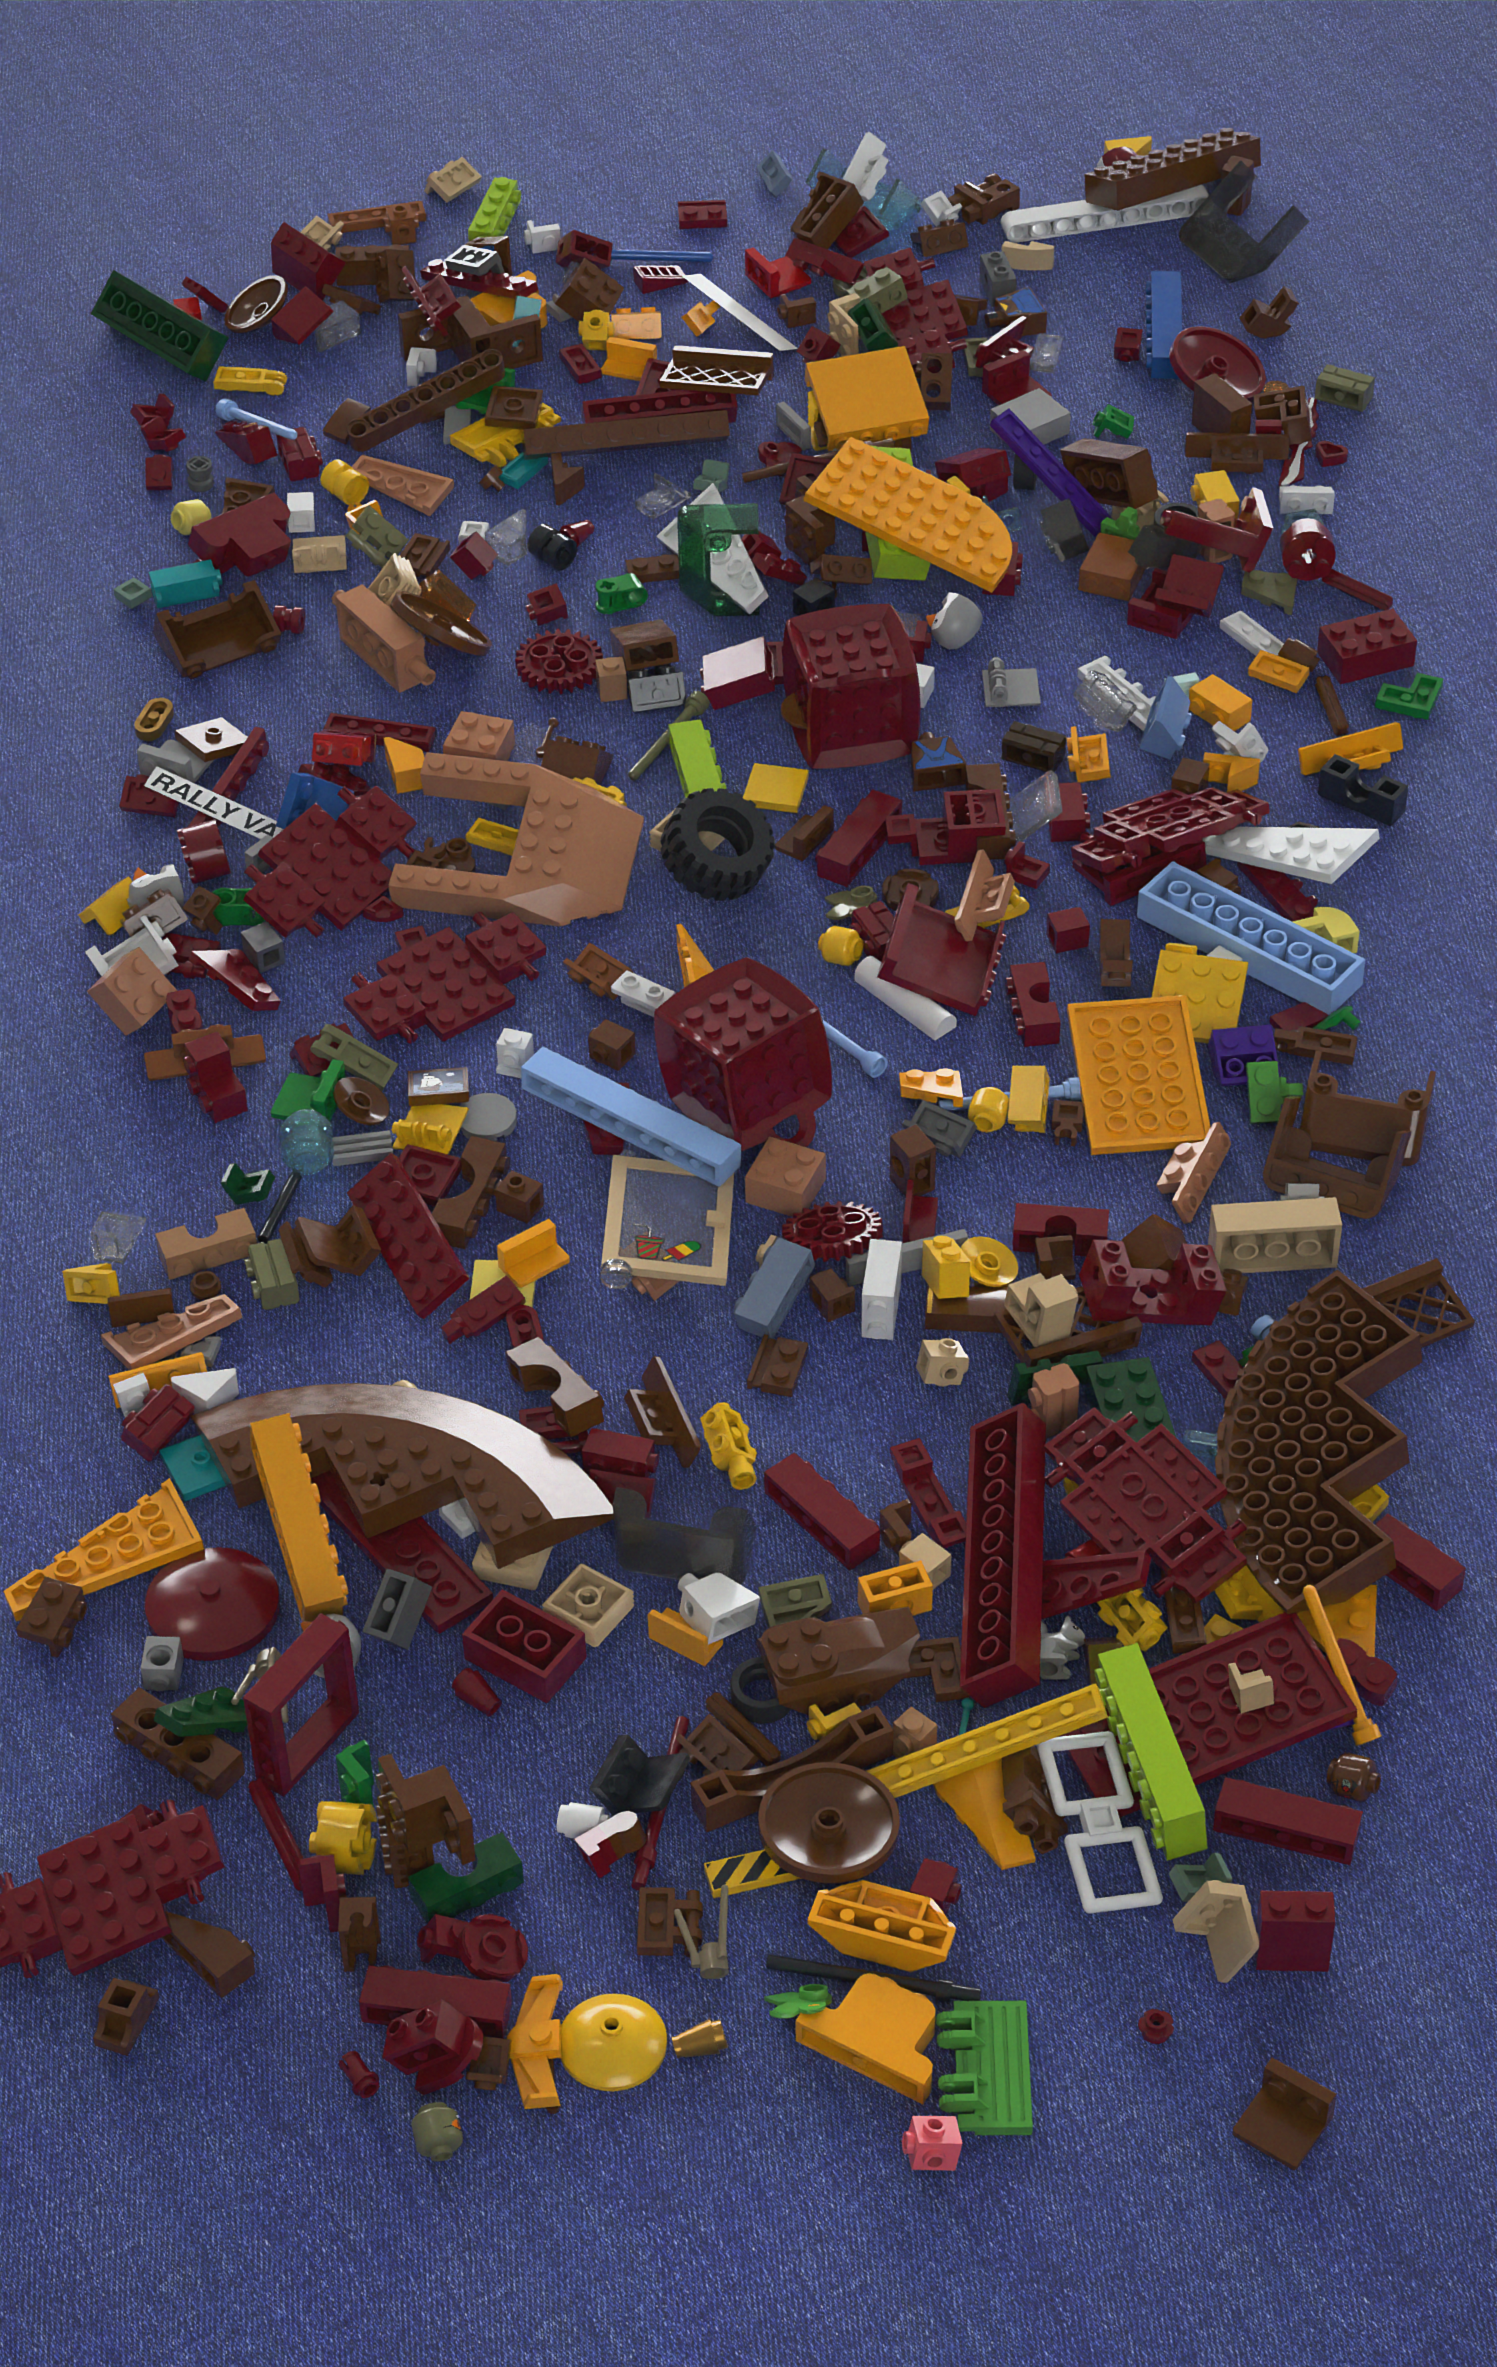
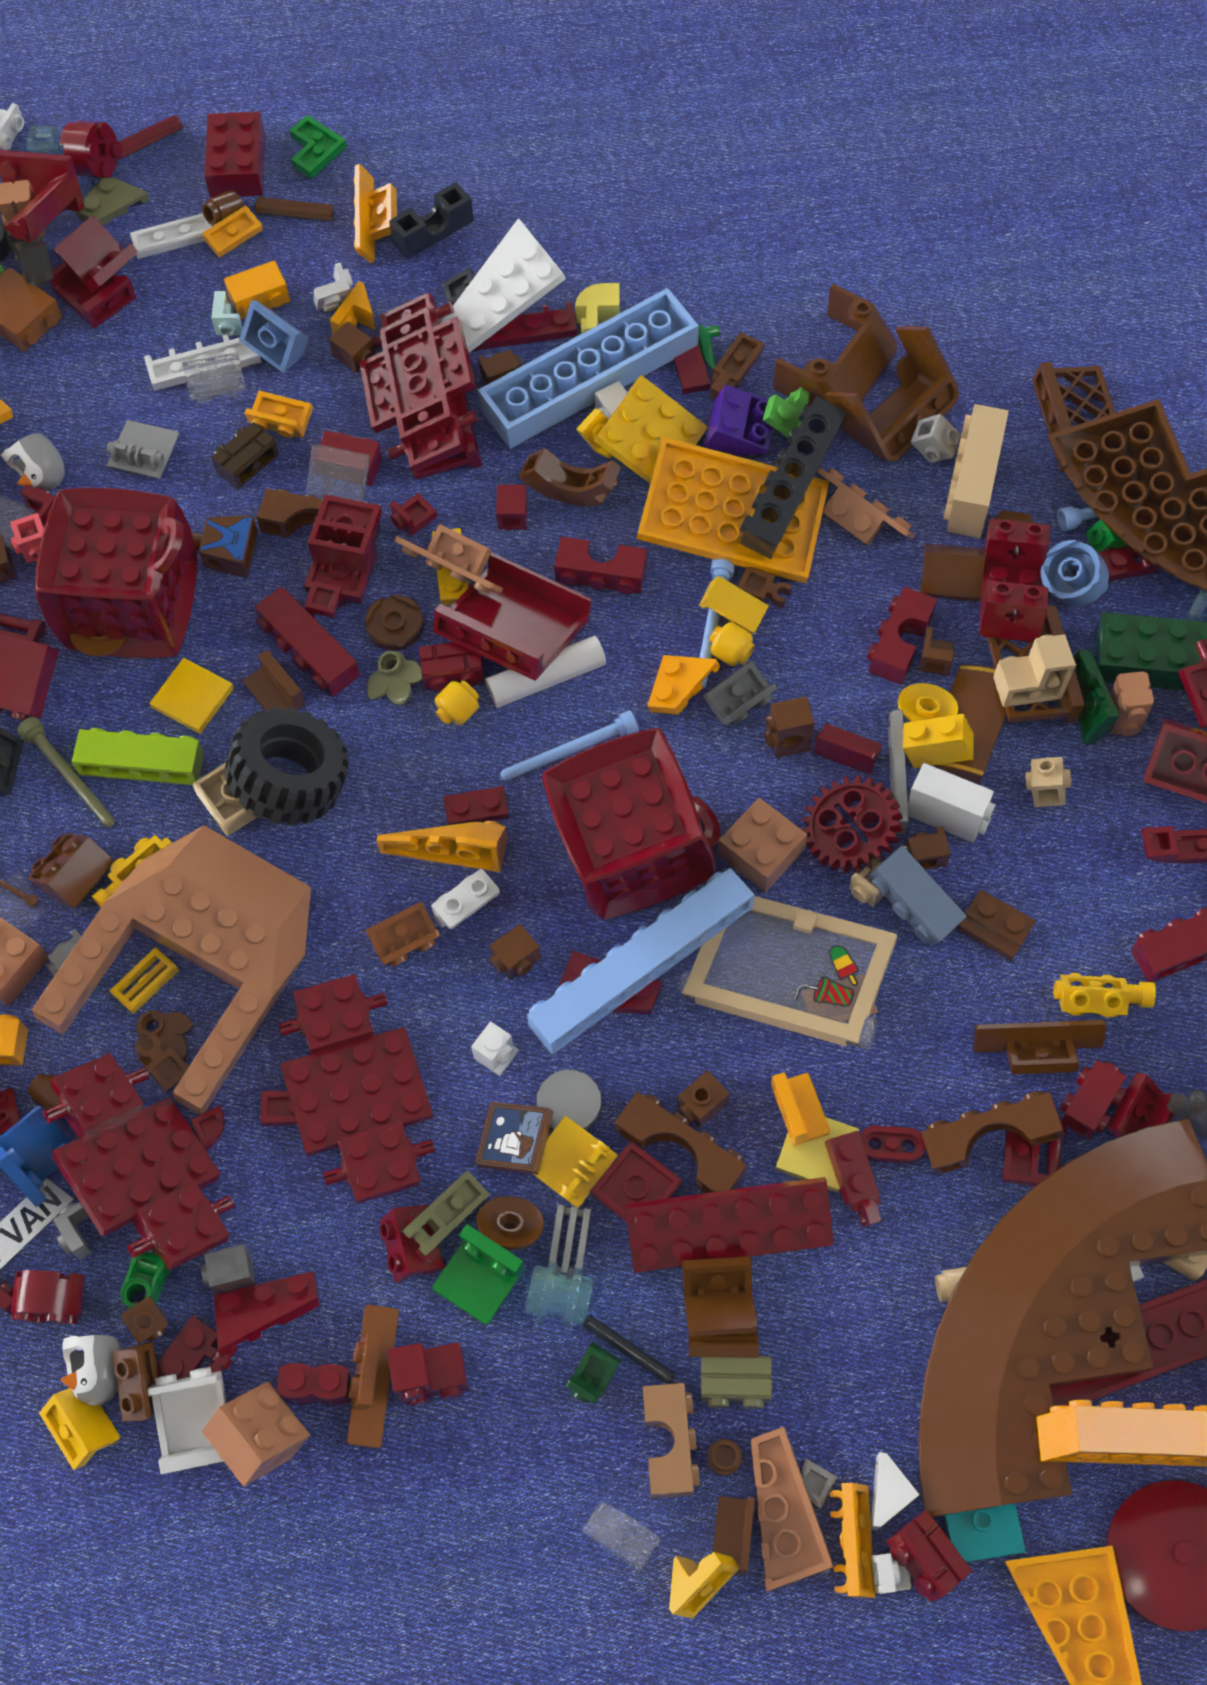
camera: 70 degrees left, 20 degrees up
(1135, 1094) = (766, 536): none -> black brick
(1186, 1331) = (1059, 573): none -> medium blue brick

